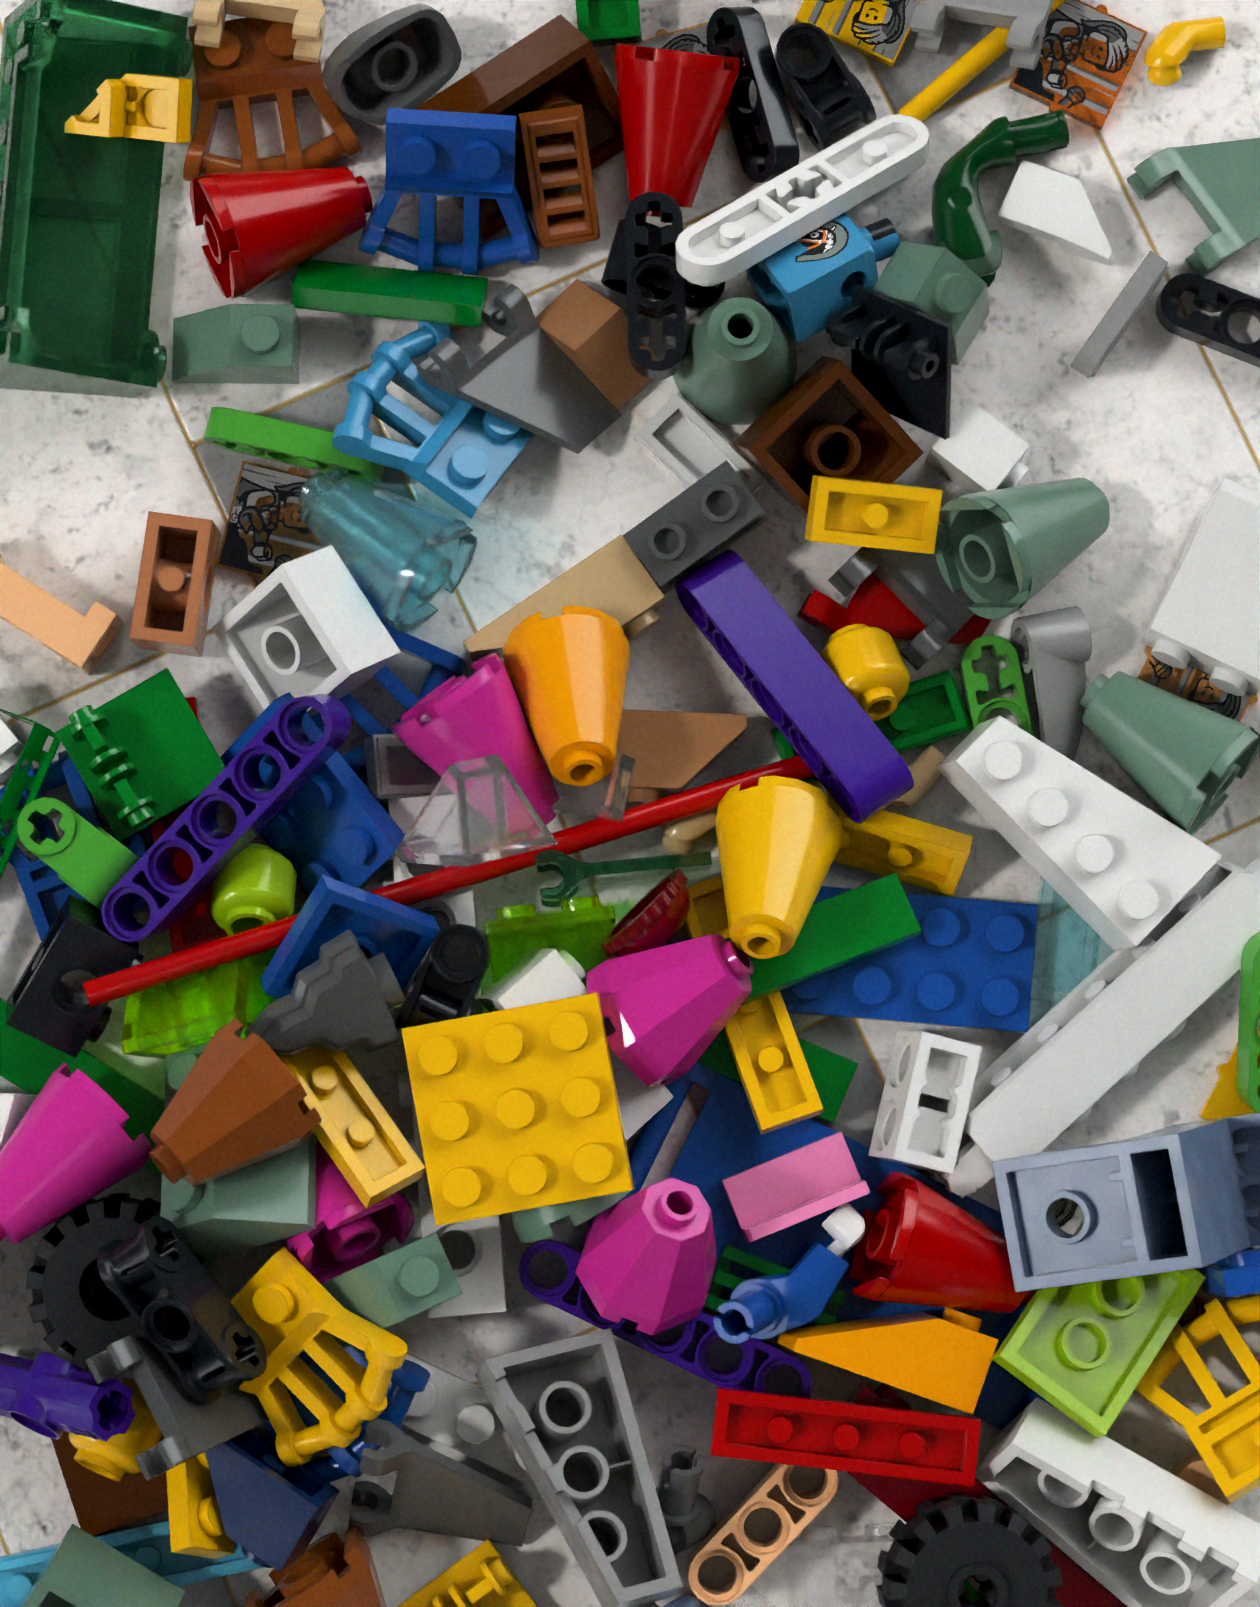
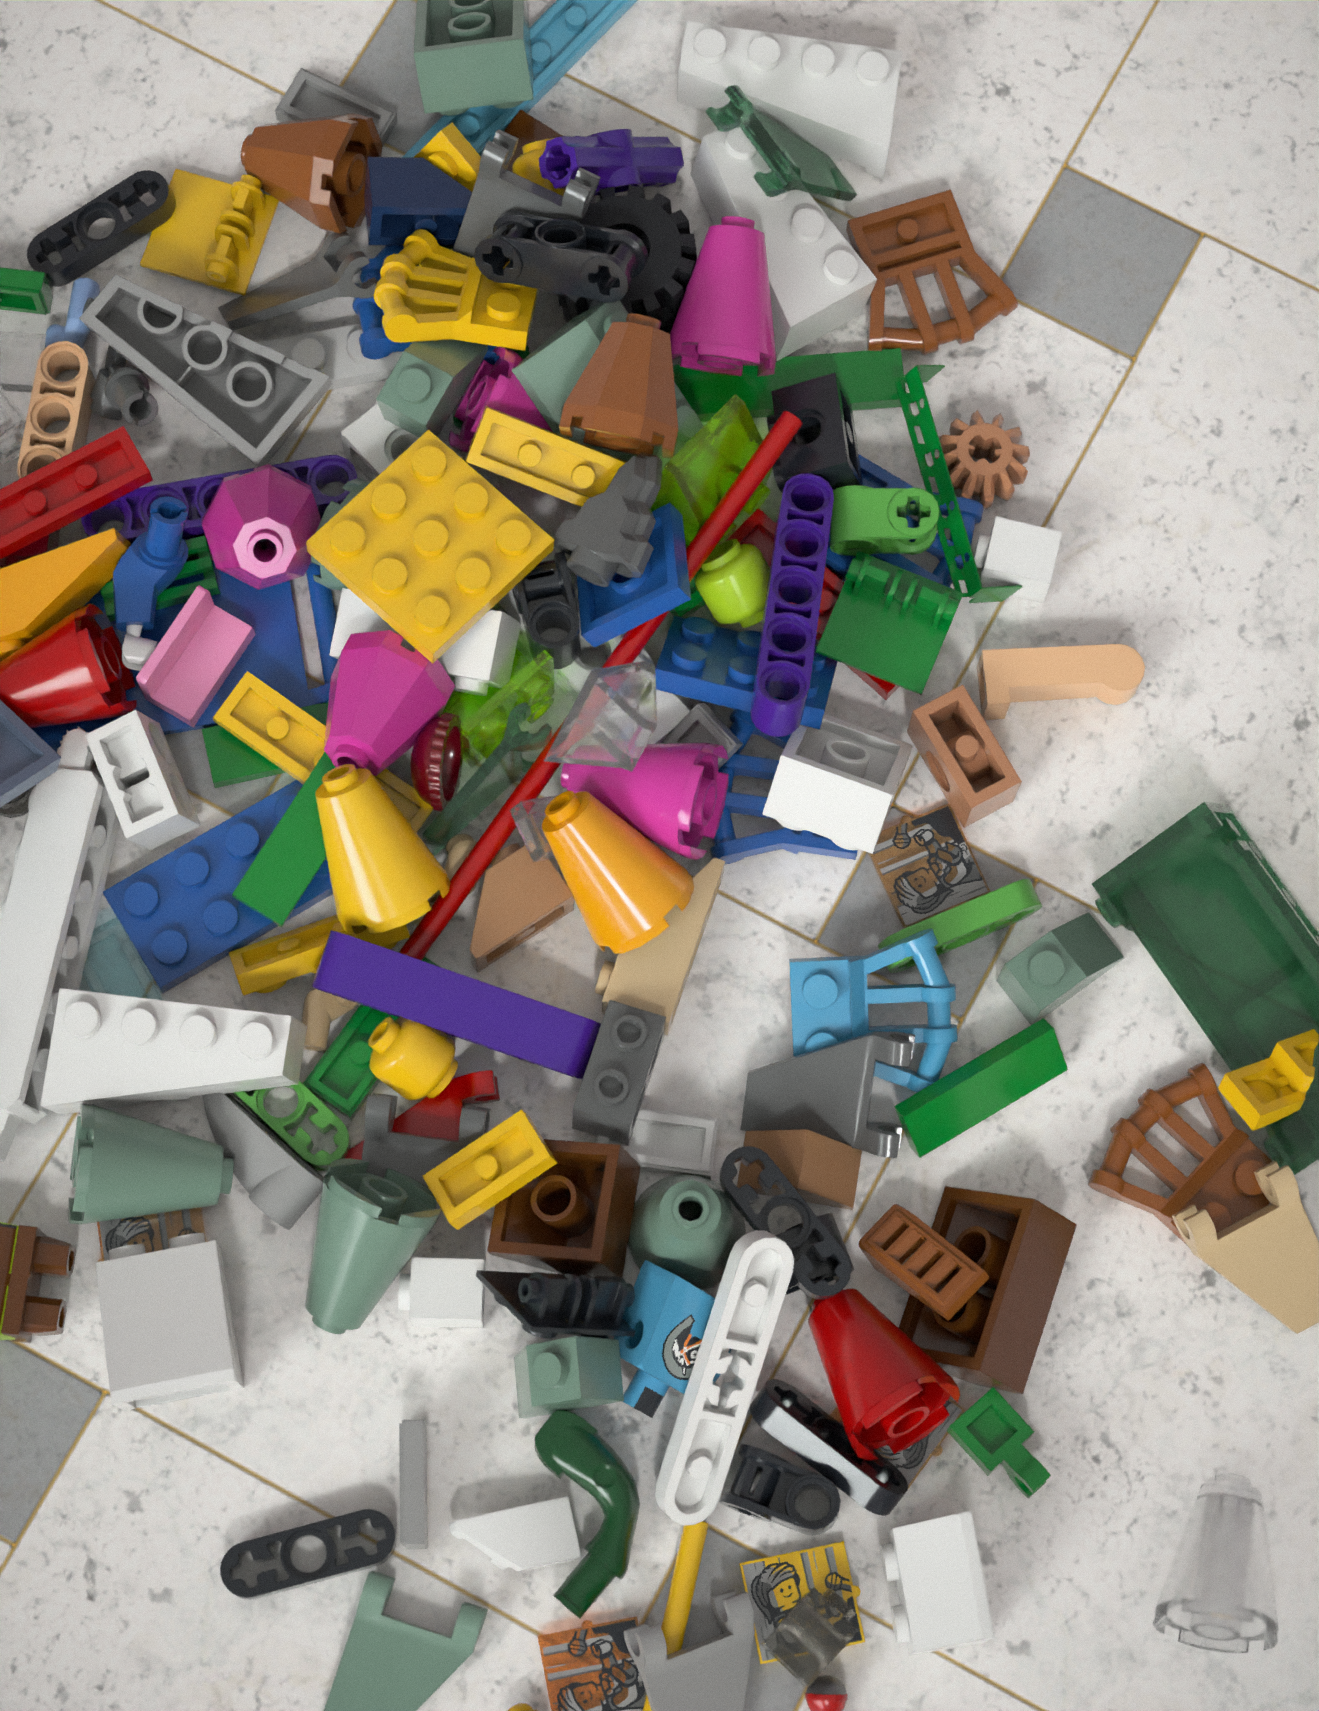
camera: 145 degrees right, 10 degrees down
(274, 220) = (1106, 1073): red cone -> none
(388, 543) = (836, 895): clear light blue cone -> none
(392, 63) = (1117, 1258): dark grey piece -> none
(454, 157) = (1003, 1202): blue plate -> none

